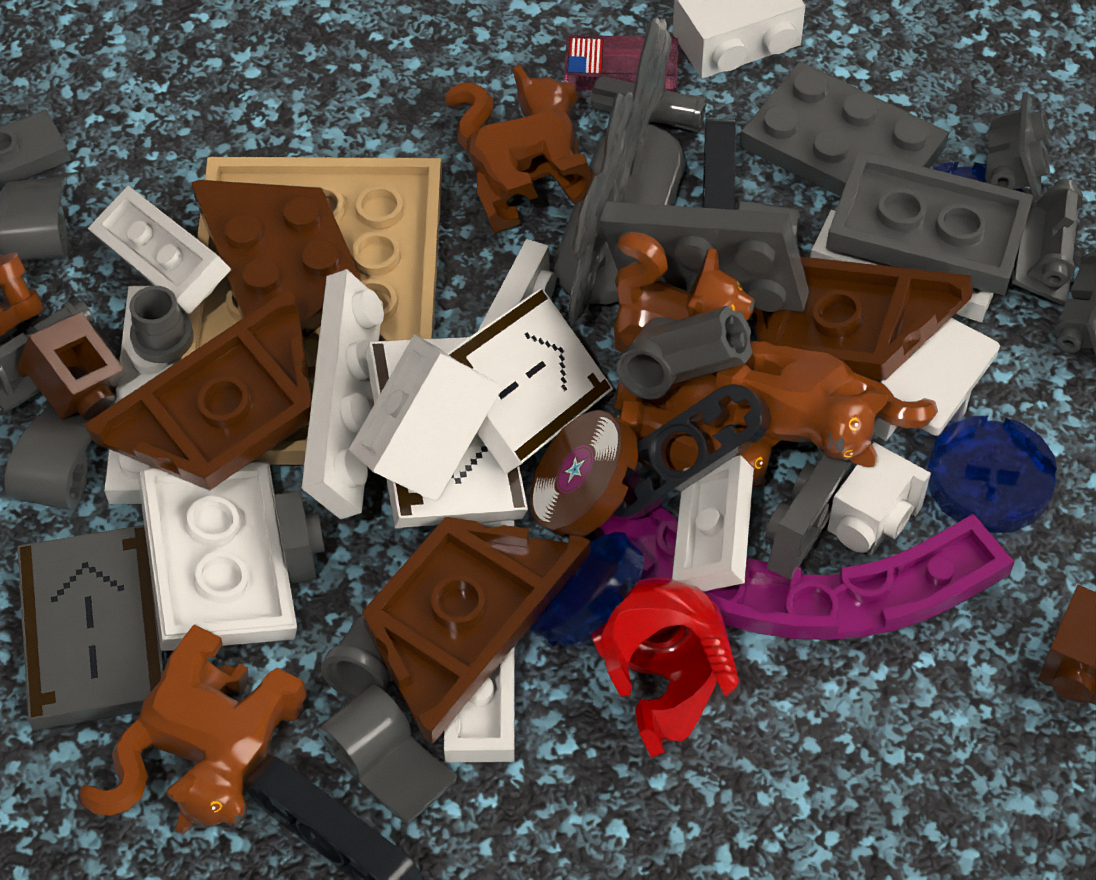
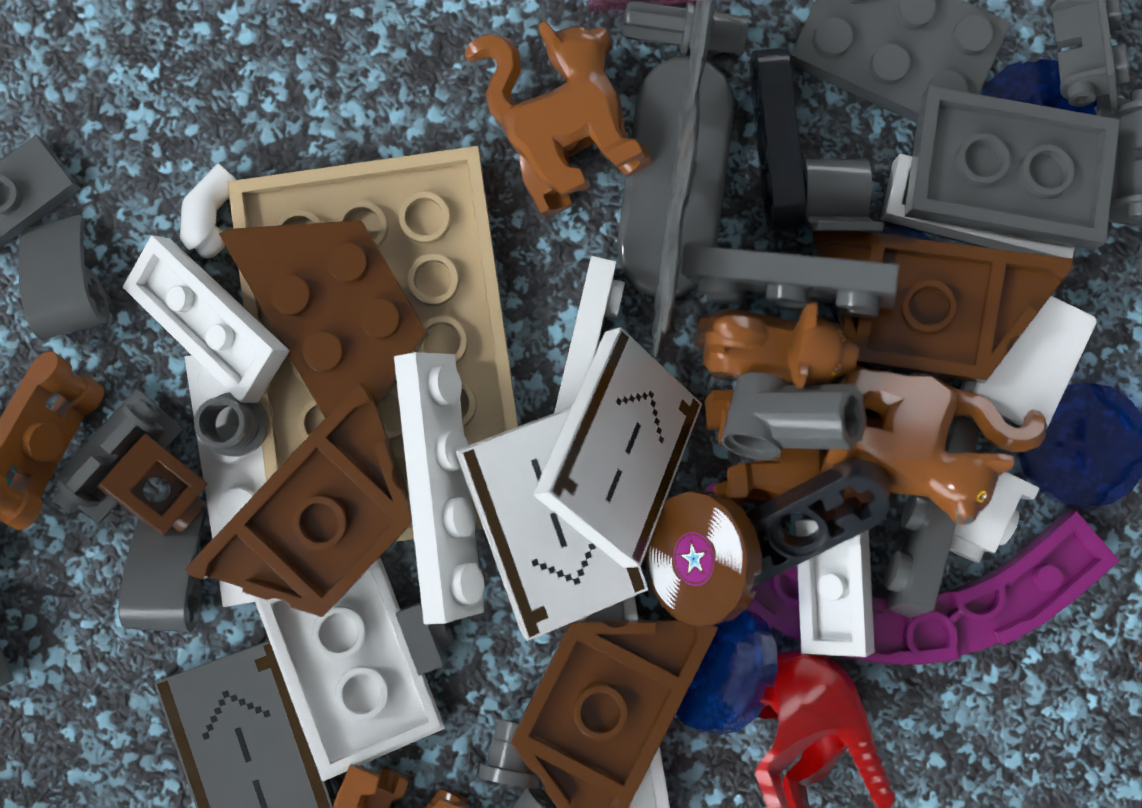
camera: 10 degrees left, 30 degrees up
(176, 180) = (199, 213): none -> white arm
(424, 419) = (534, 555): white panel -> none

